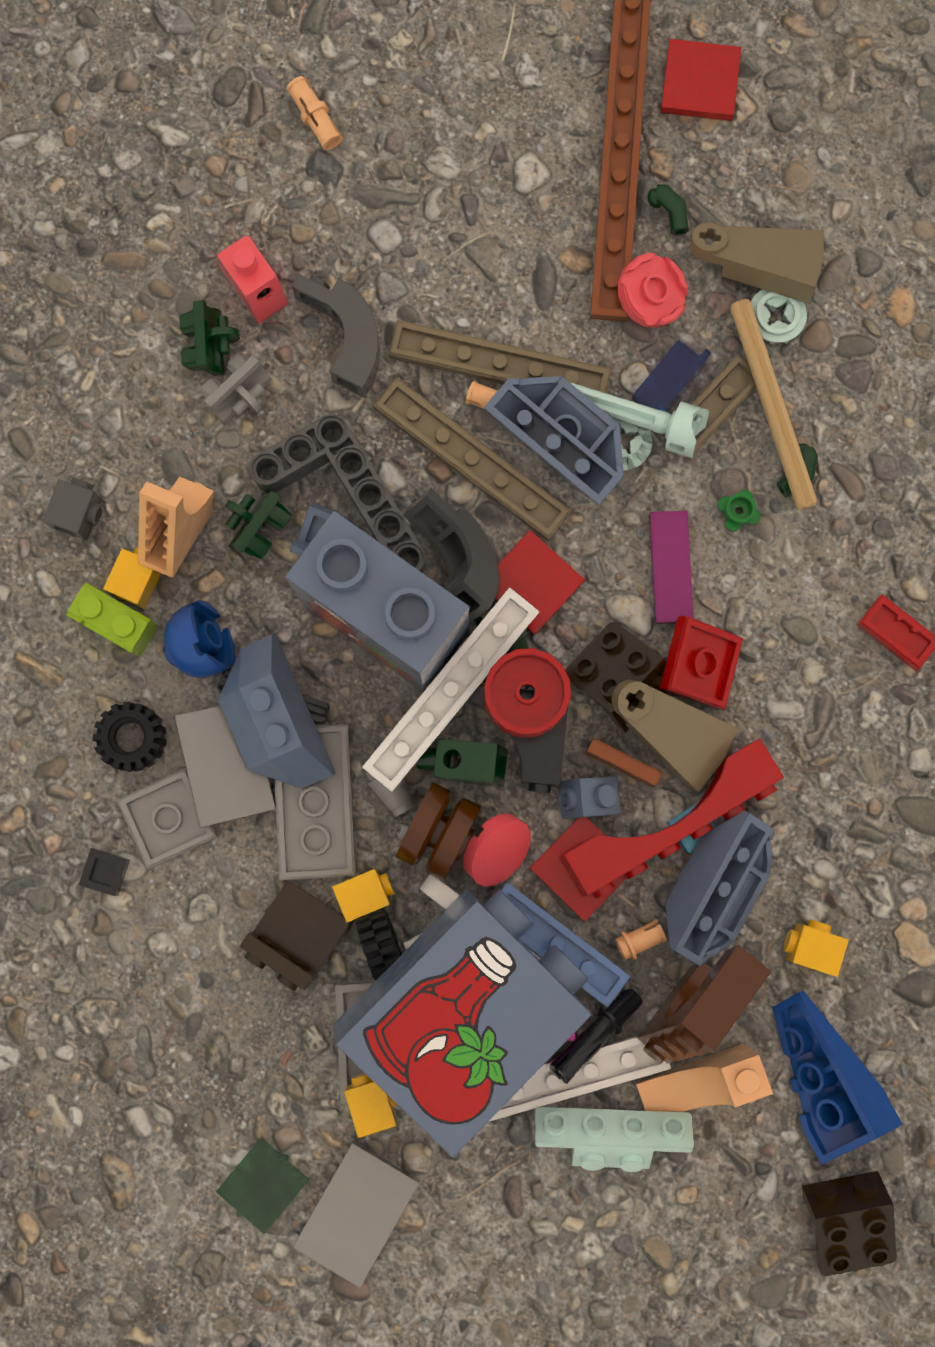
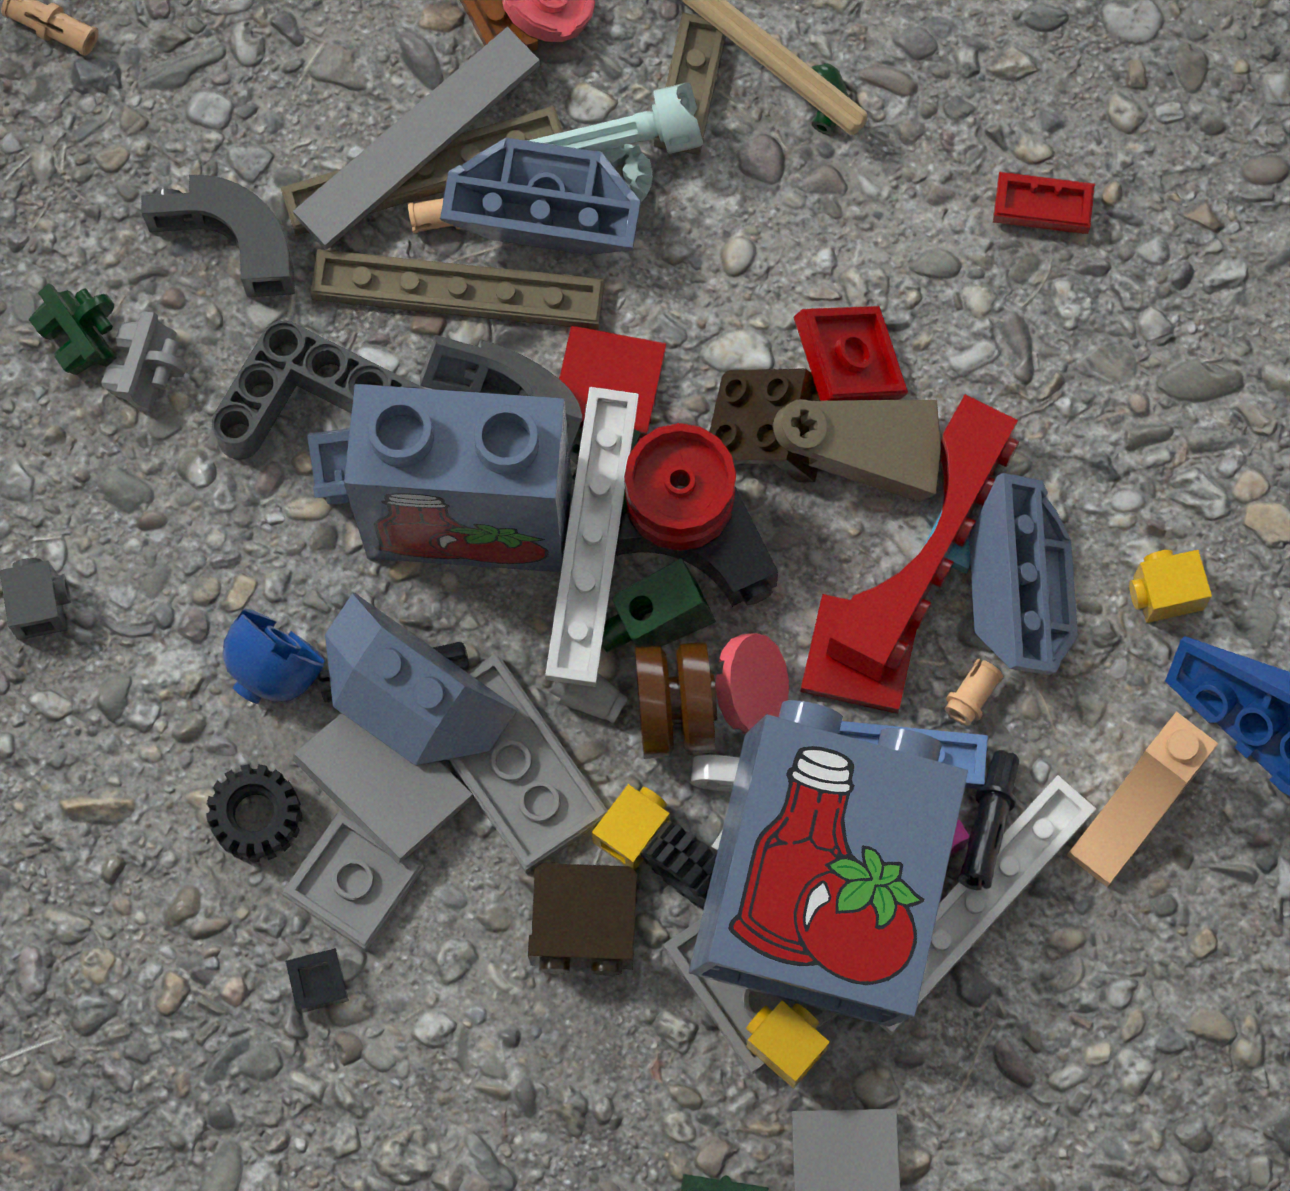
camera: 30 degrees left, 10 degrees down
(112, 619) = (155, 693): lime brick -> none
(131, 580) = (151, 634): yellow brick -> none
(171, 523) = (163, 539): light nougat arch -> none
(250, 275) = (81, 231): coral torso -> none
(267, 510) = (258, 474): dark green hips -> none
(506, 339) = (416, 138): none -> light grey tile
(589, 797) = (818, 573): sand blue bracket -> none
(613, 1136) = (1079, 922): light aqua bracket -> none
(623, 762) = (832, 512): dark orange tile -> none
(670, 566) = (750, 276): magenta tile -> none
(671, 377) = (626, 75): clear blue panel -> none
(703, 1007) = (1083, 699): reddish brown arch -> none
(745, 501) = (788, 161): green plate -> none

